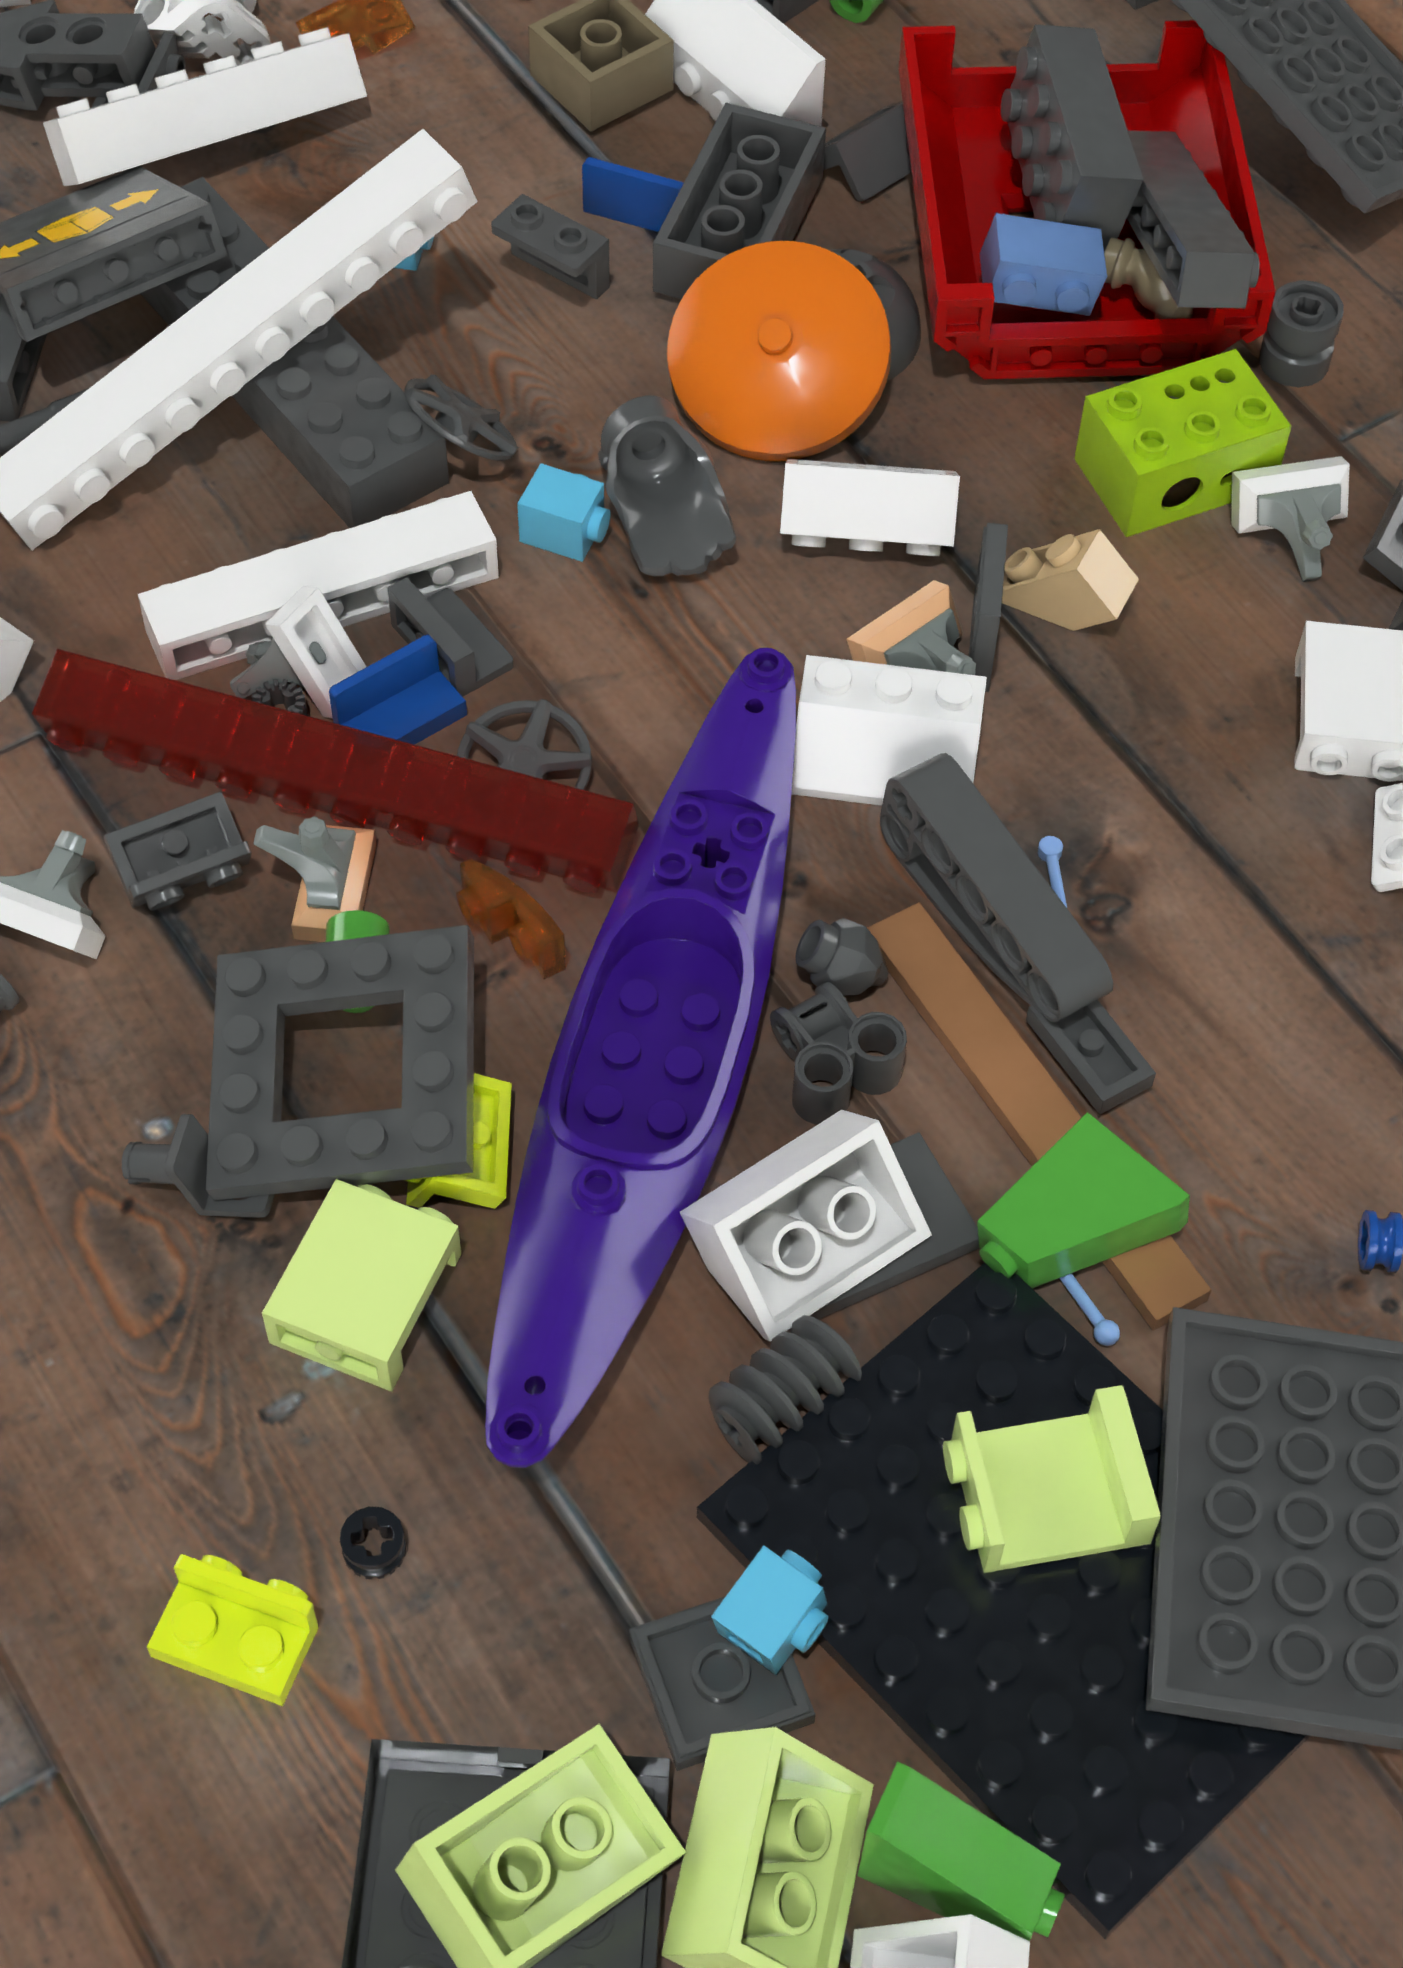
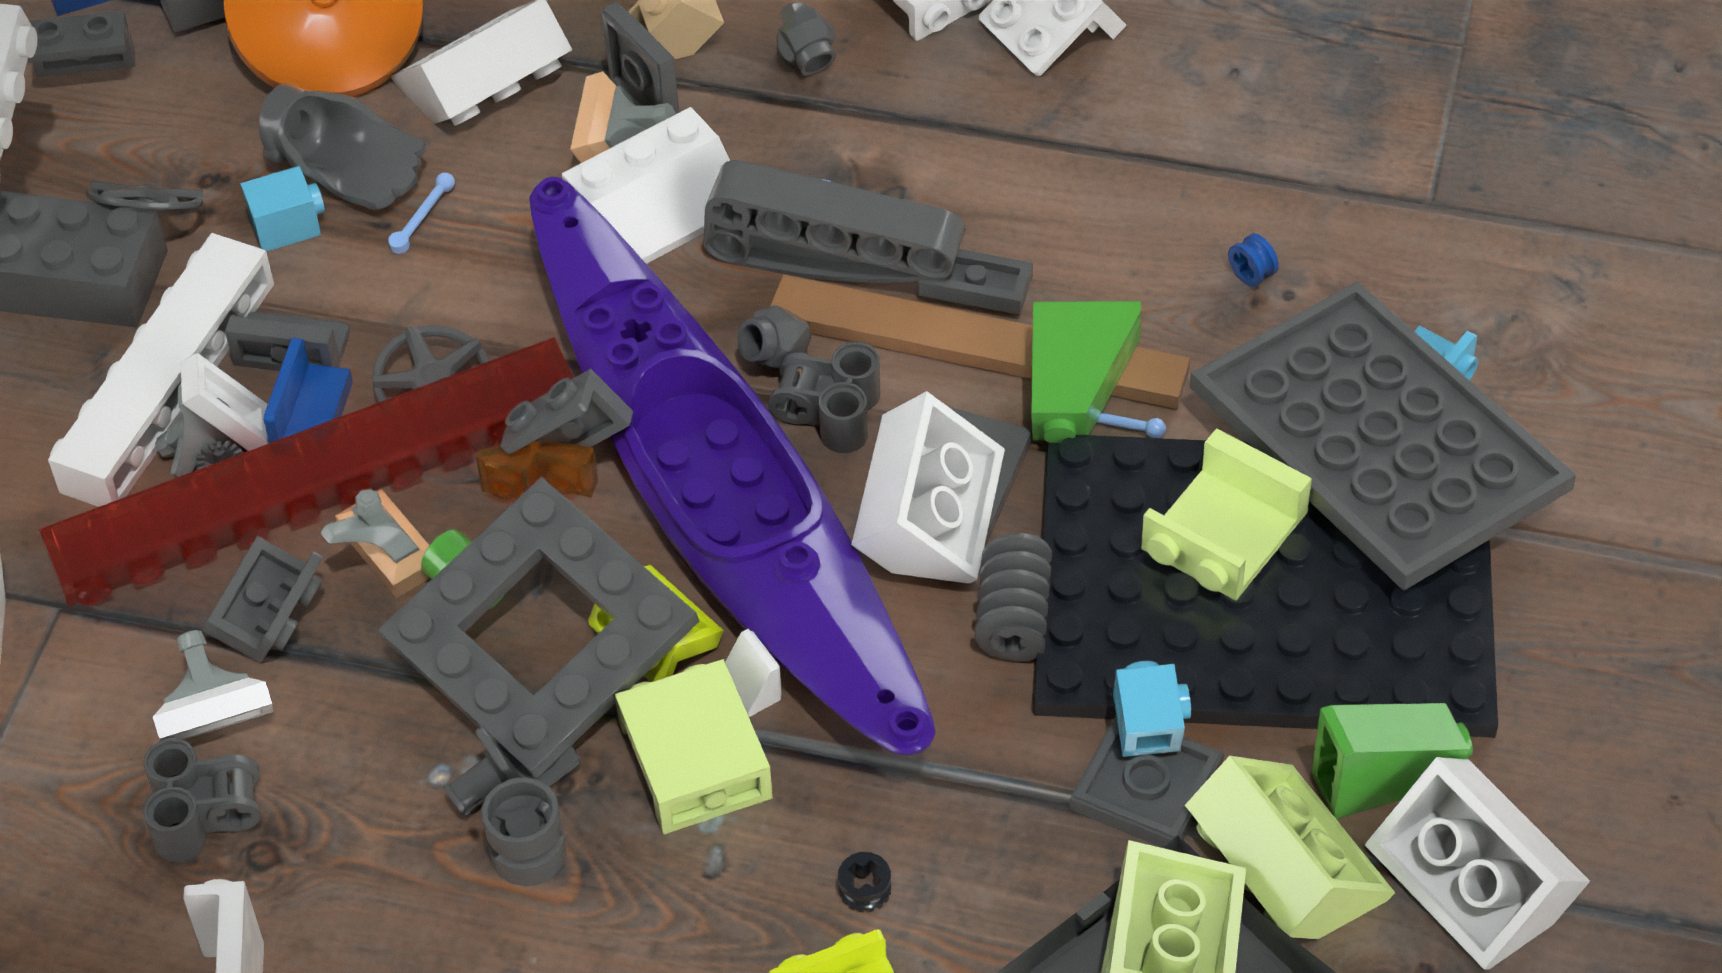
camera: 40 degrees left, 5 degrees down
(141, 1240) = (524, 831): none -> dark grey wheel
(483, 1262) = (754, 673): none -> white slope
(565, 883) = (571, 413): none -> dark grey bracket
(635, 615) = (399, 240): none -> light blue hinge
(1178, 690) = (805, 39): none -> dark grey rock

